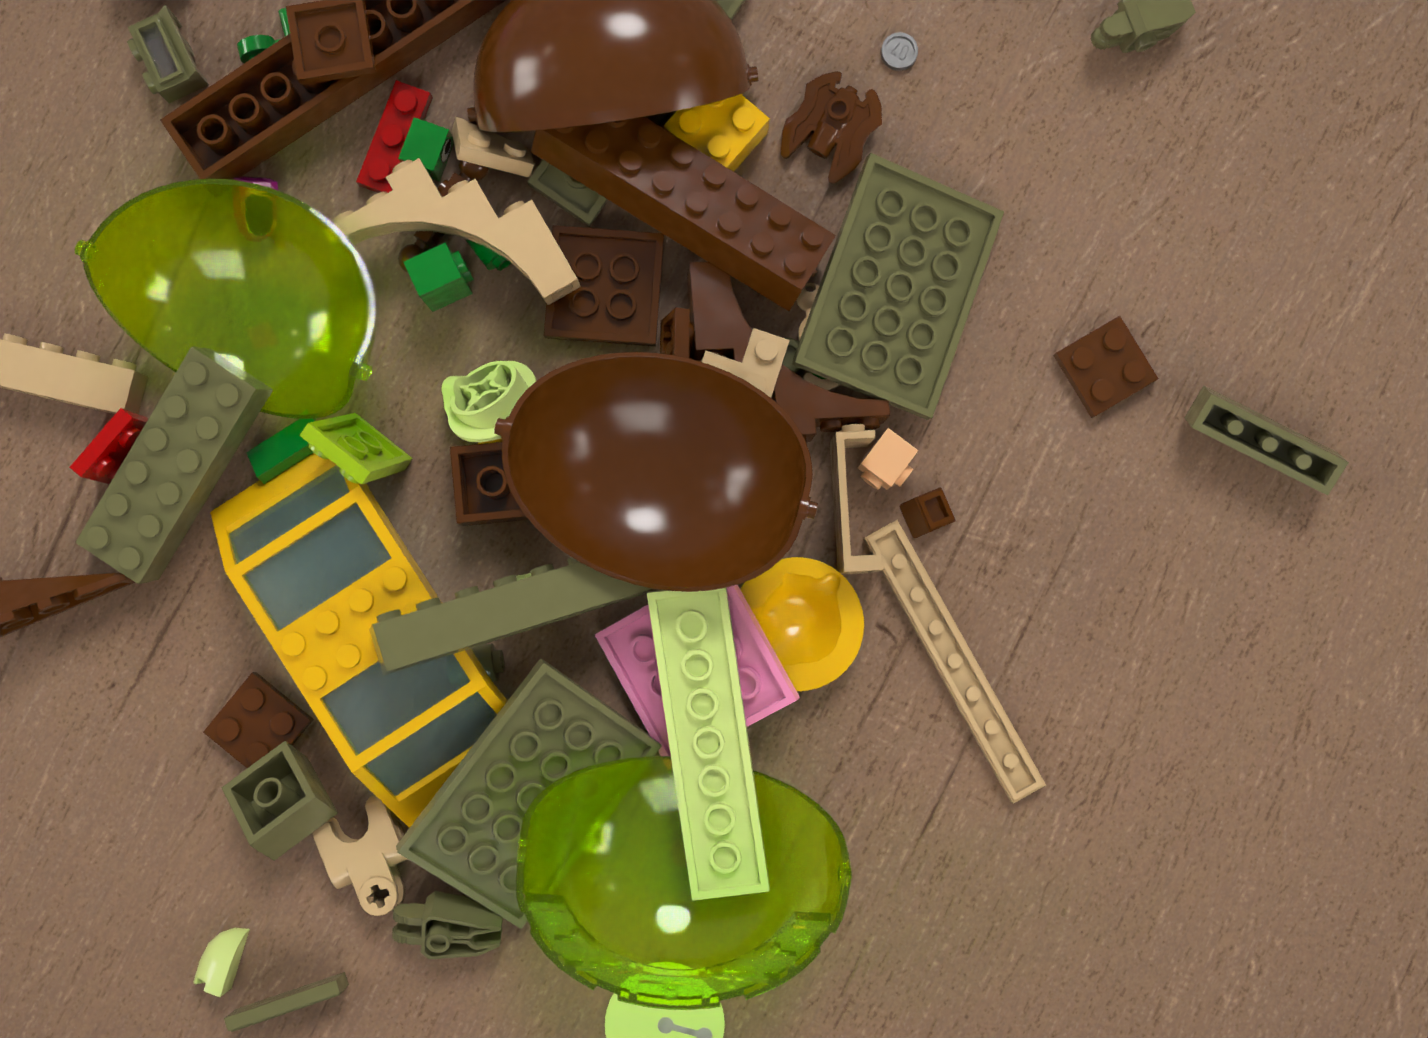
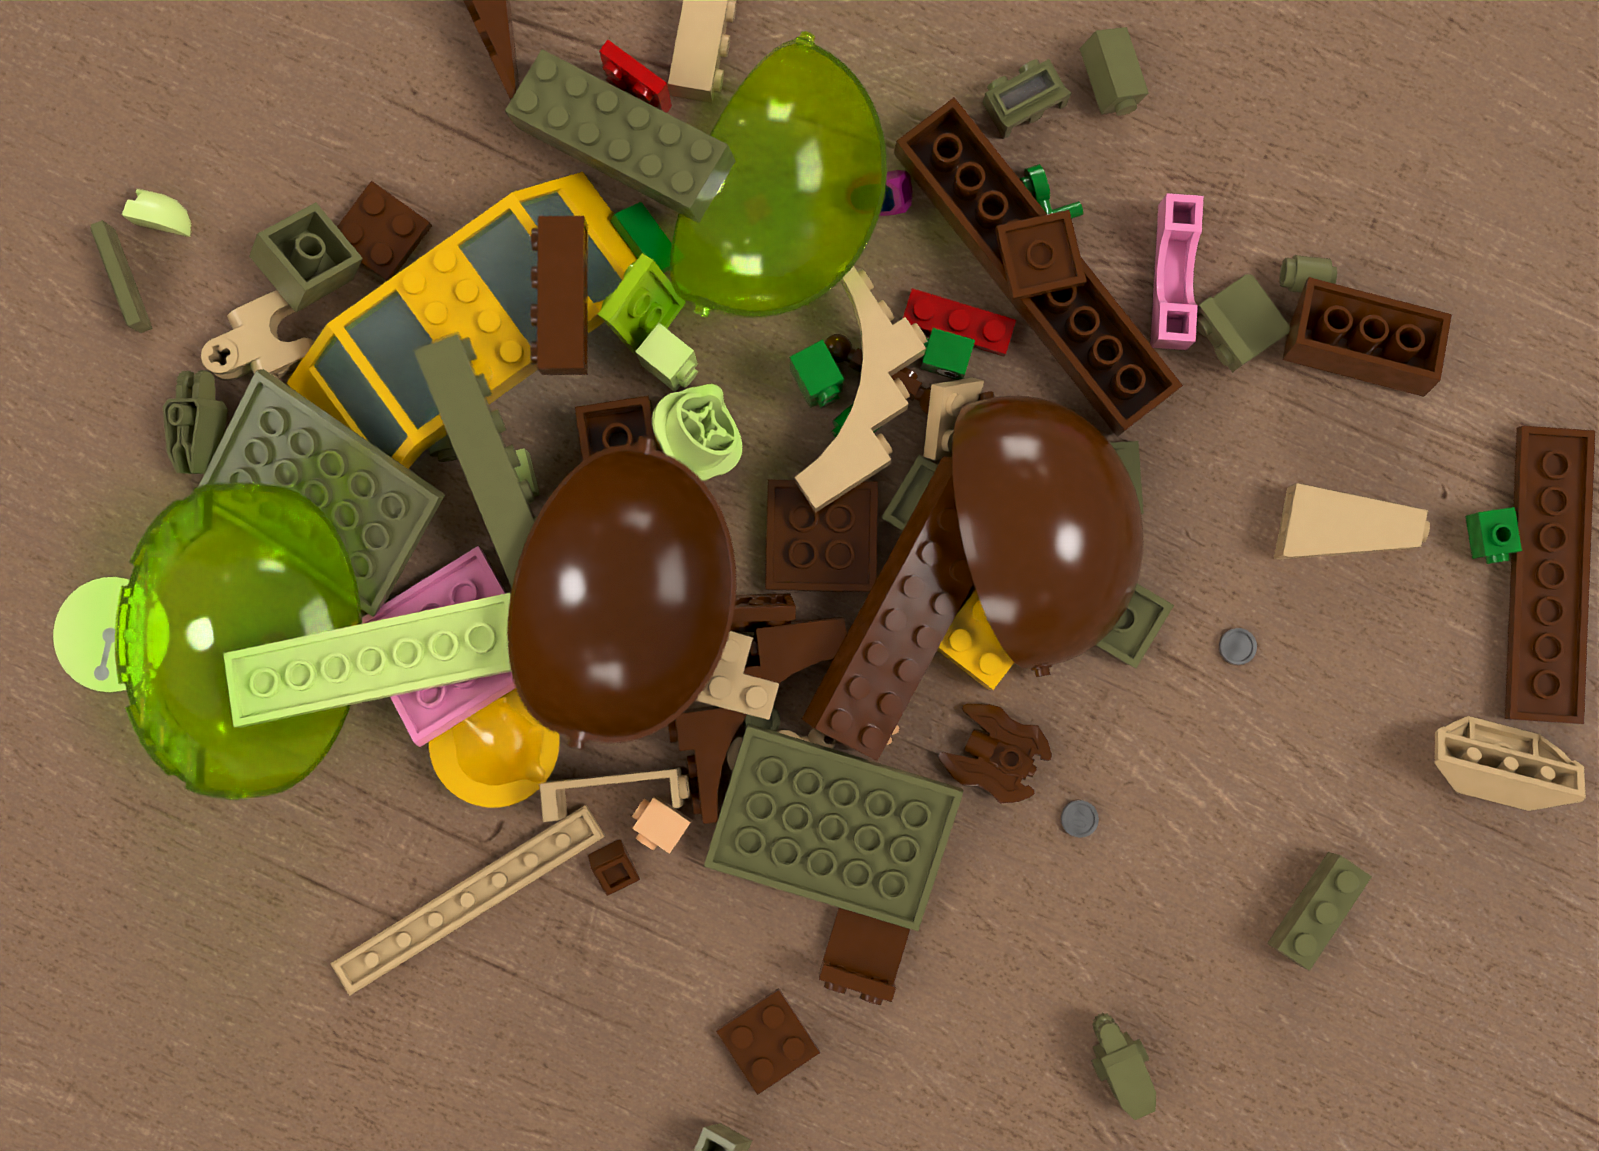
camera: 90 degrees right, 0 degrees up
(338, 520) = (561, 295): none -> reddish brown brick
(412, 426) = (668, 358): none -> yellowish green brick
(1027, 267) = (863, 956): none -> reddish brown bracket

